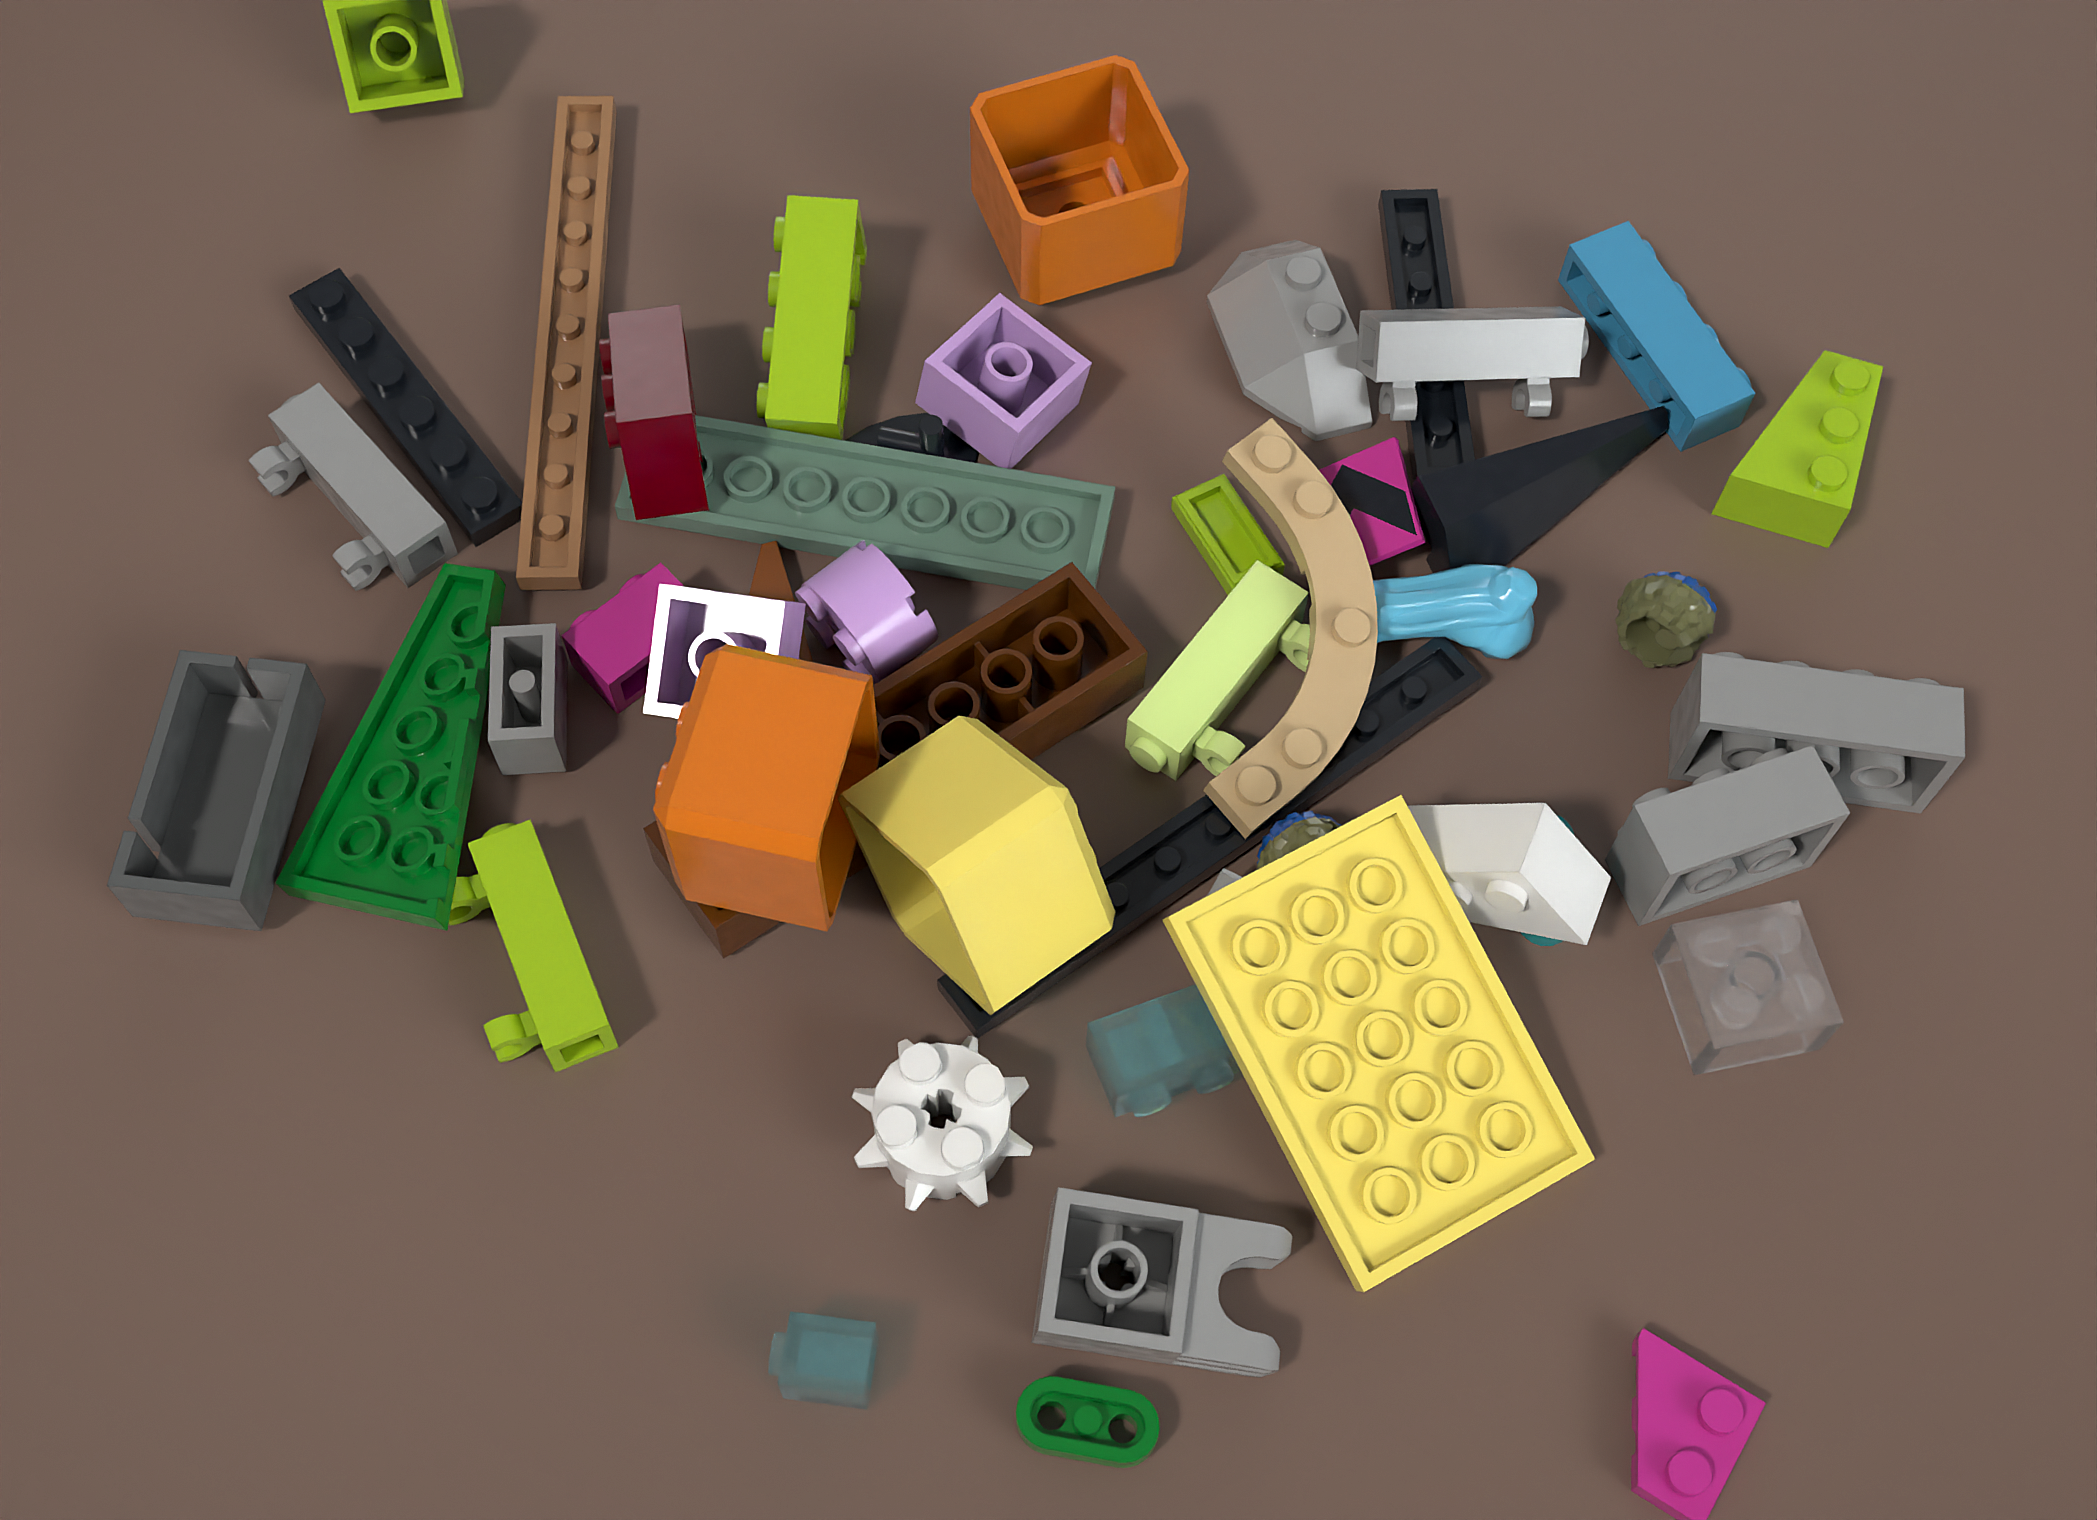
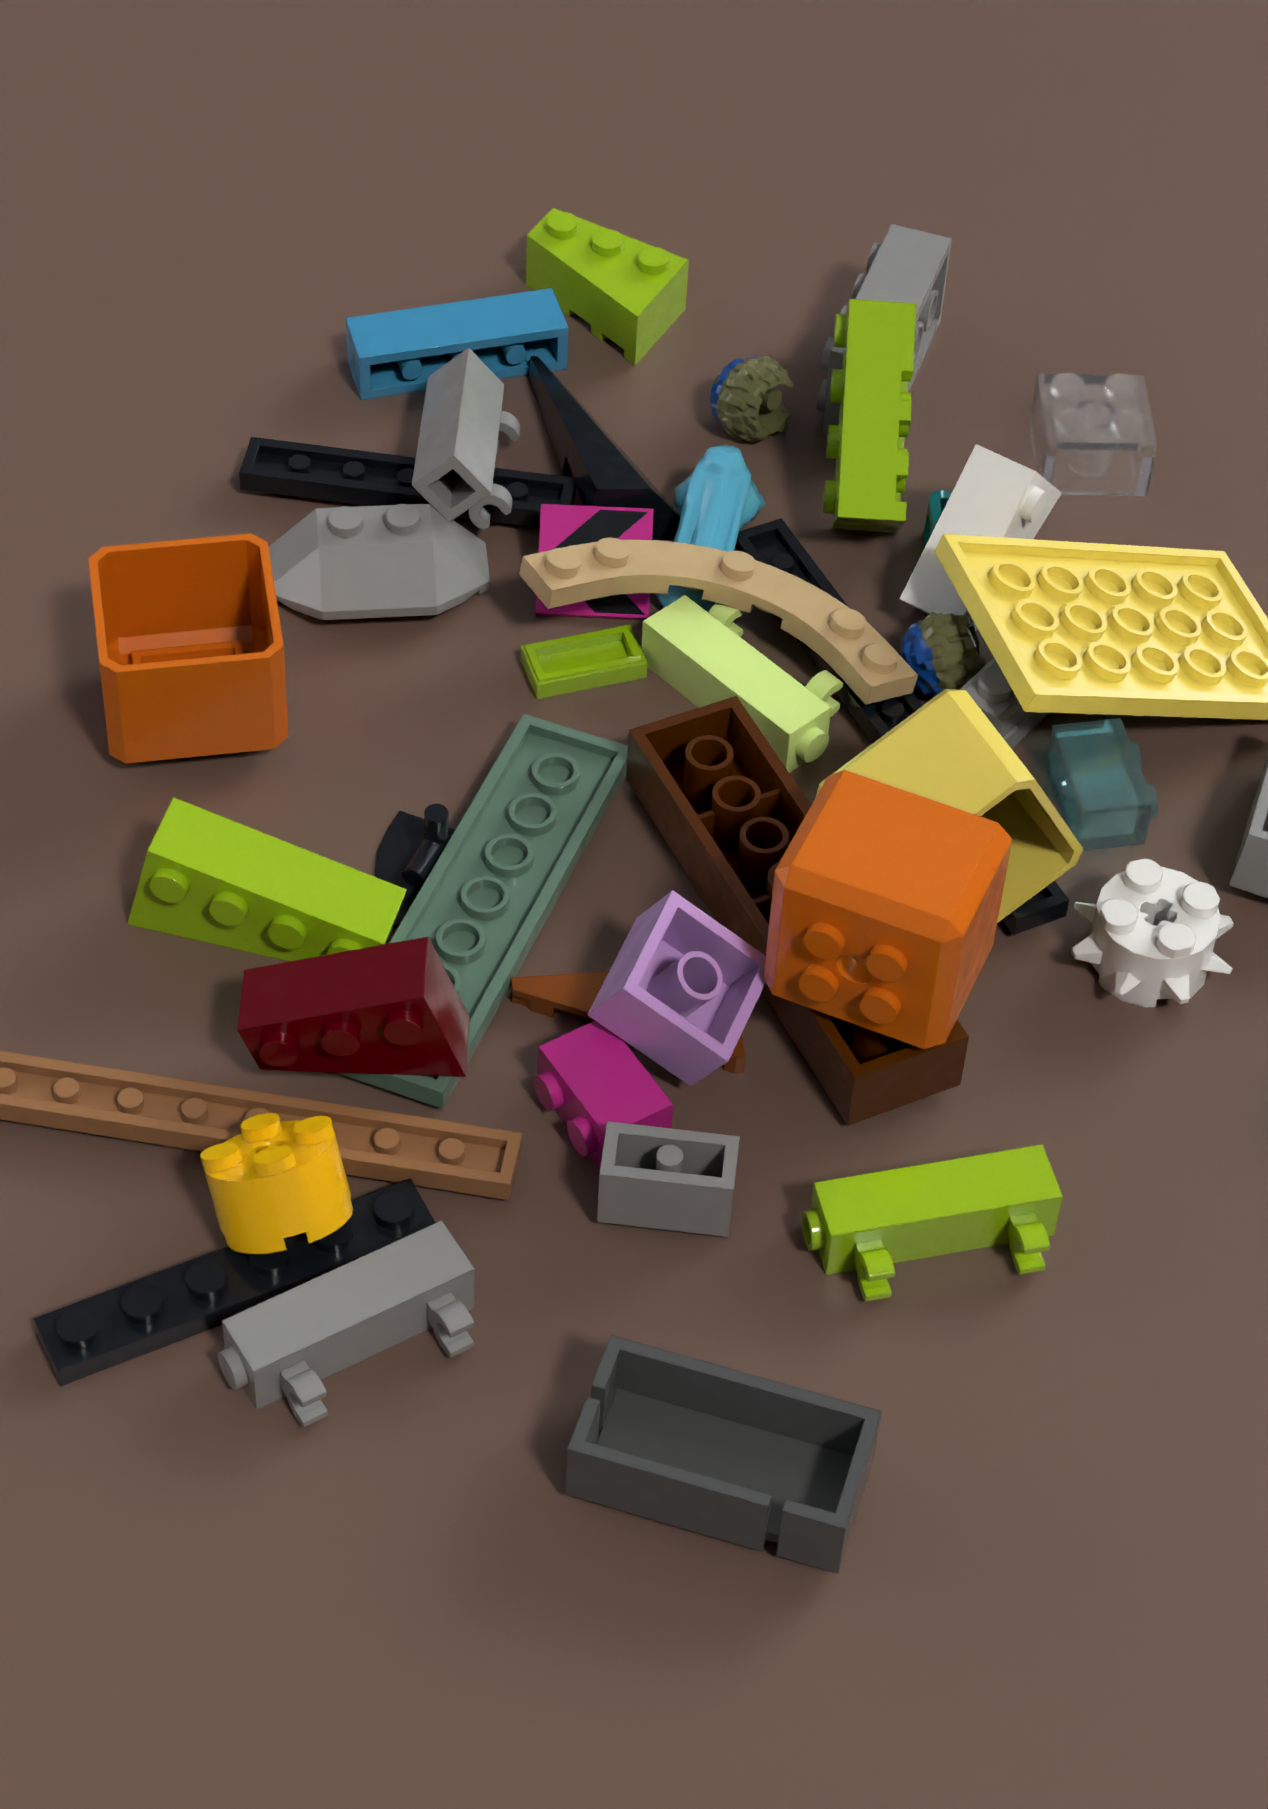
camera: 80 degrees left, 15 degrees down
(400, 795) = (712, 1288): green wing -> none
(466, 390) = (277, 1183): none -> yellow brick
(867, 612) = (622, 883): lavender brick -> none
(1002, 382) = (388, 764): lavender brick -> none
(1607, 715) = (872, 415): none -> lime wedge
(1725, 833) = (966, 391): light grey brick -> none

